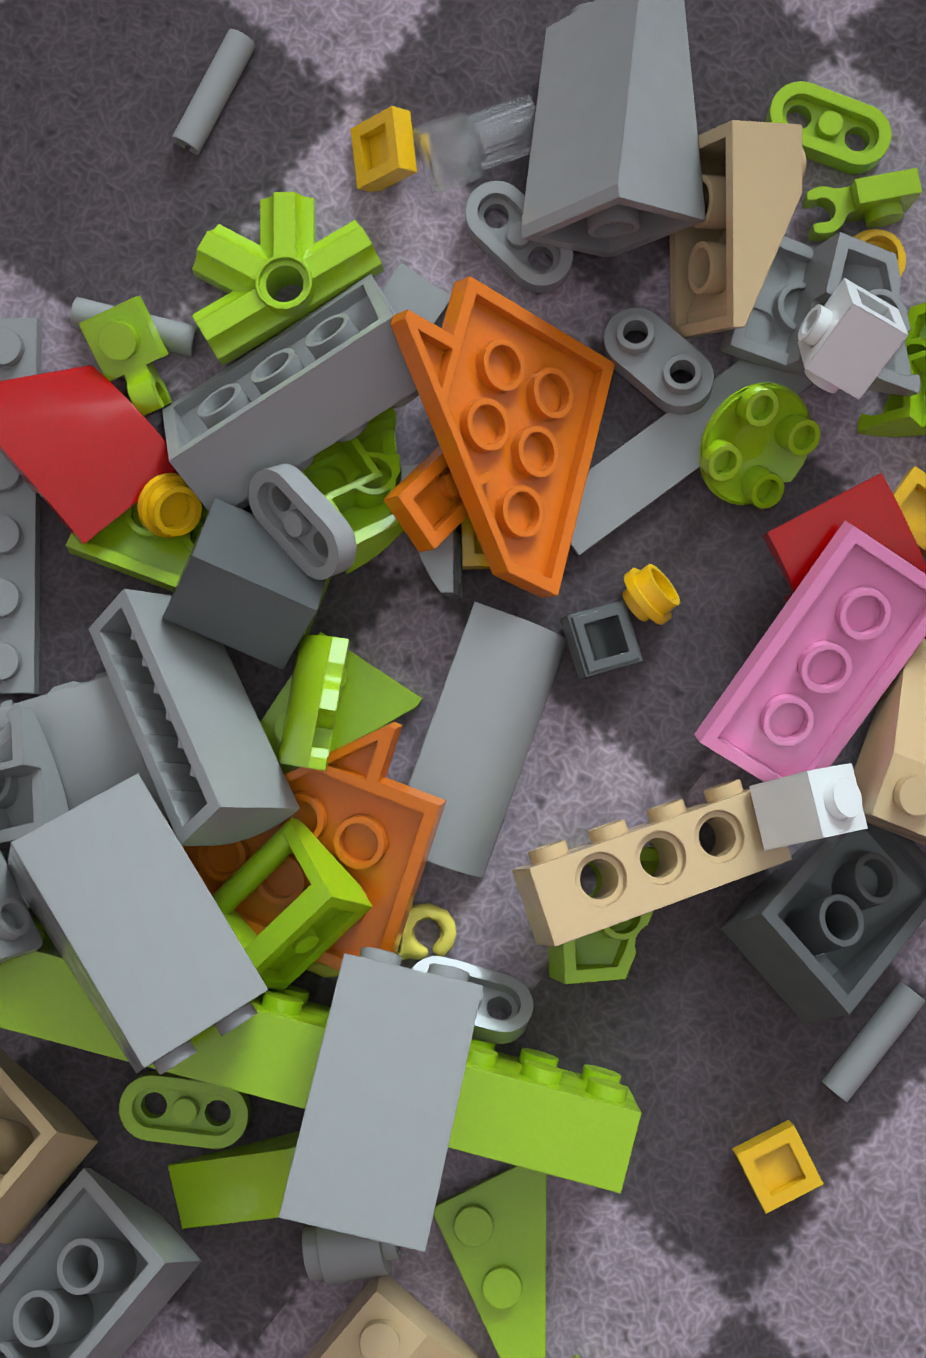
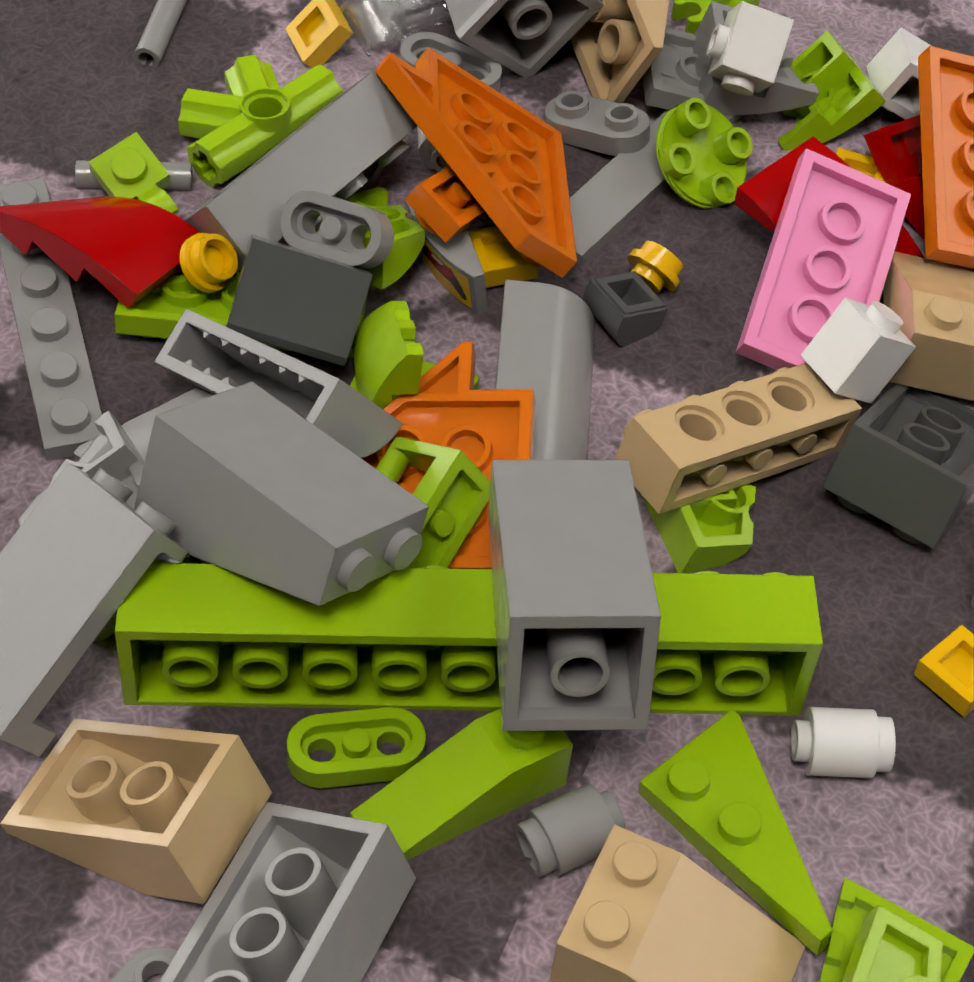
camera: 20 degrees left, 35 degrees down
(631, 1222) = (843, 742): none -> white brick

